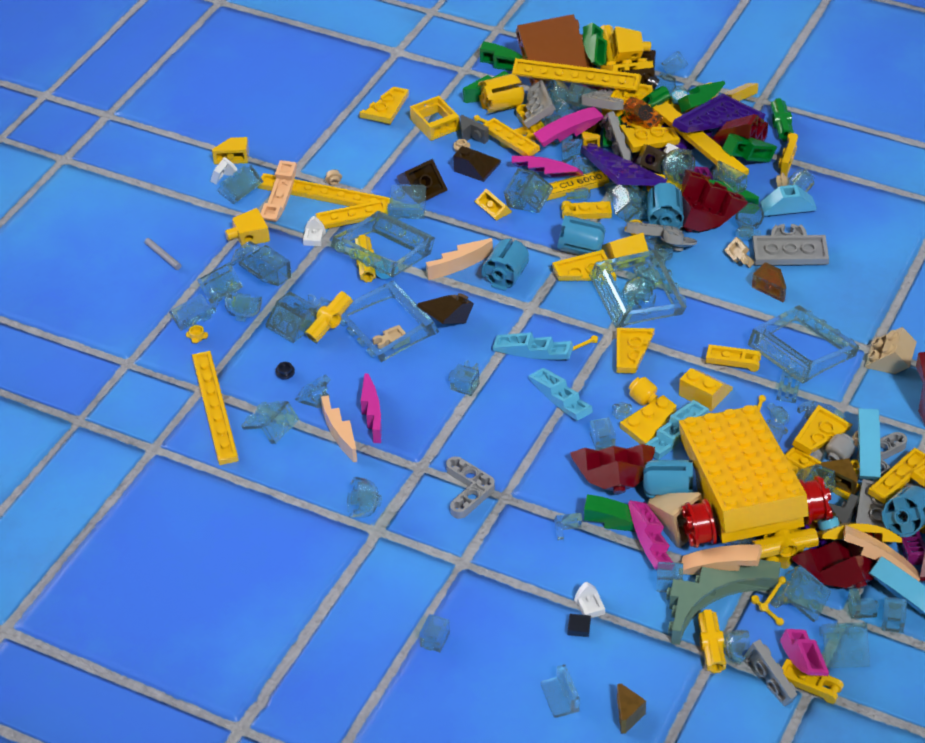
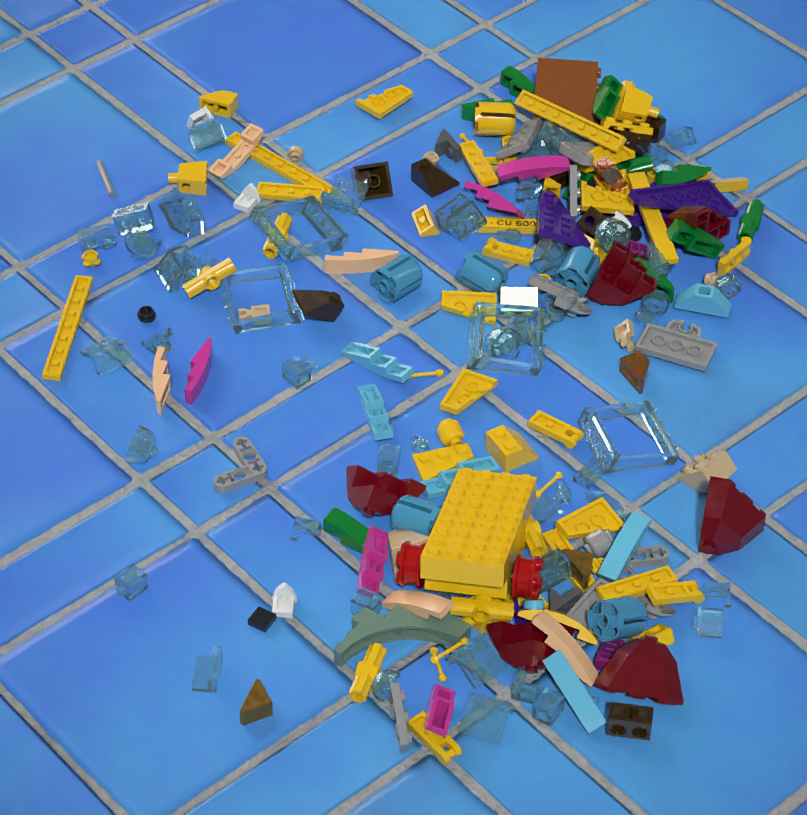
camera: 20 degrees right, 0 degrees up
(440, 127) = (420, 135): yellow window -> none

